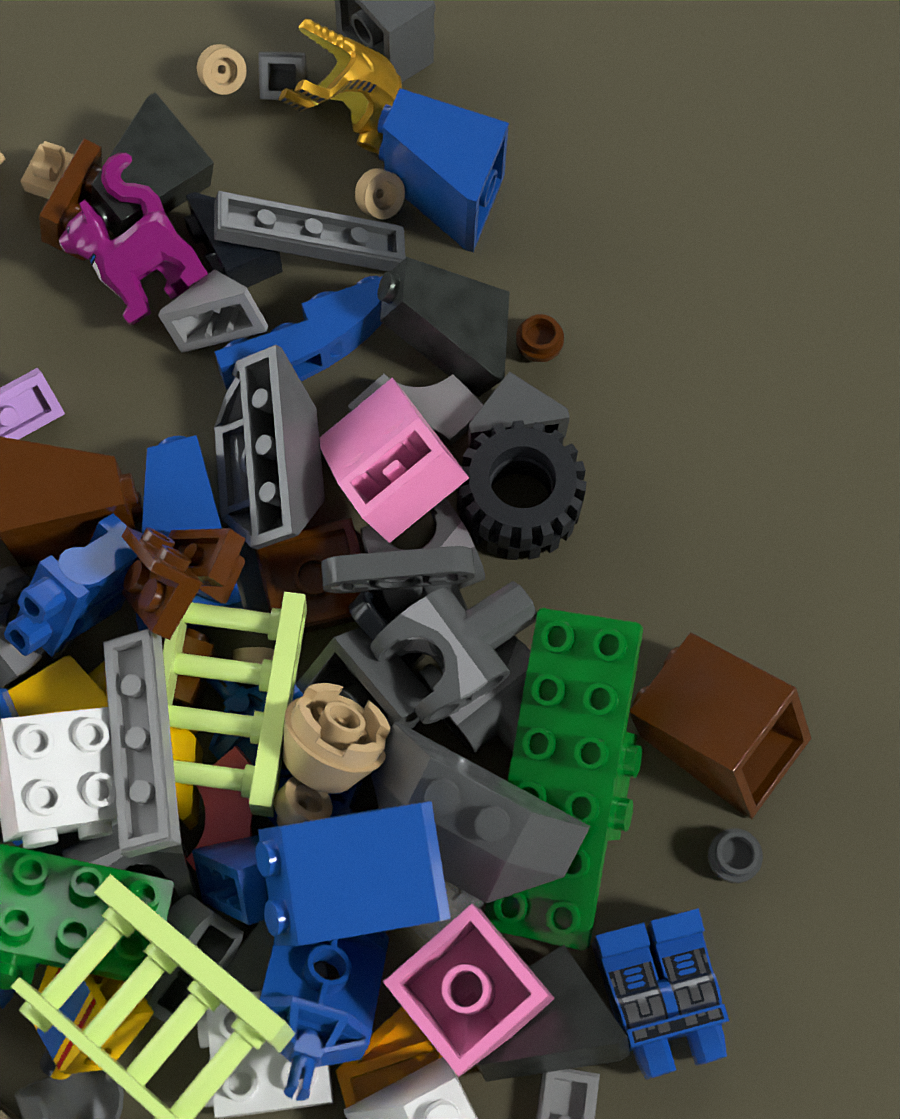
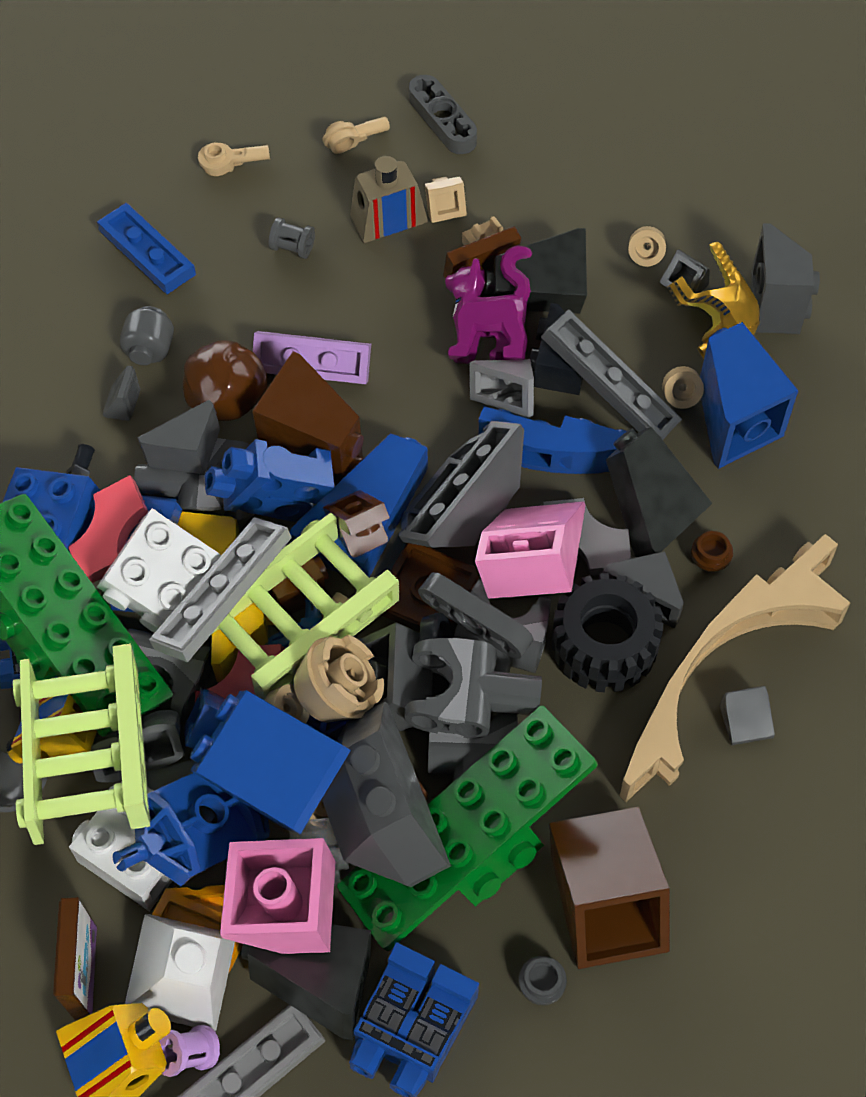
camera: 45 degrees right, 10 degrees down
(160, 583) = (317, 504): reddish brown bracket -> none
(641, 334) = (786, 598): none -> tan slope
(699, 471) = (747, 715): none -> dark grey slope

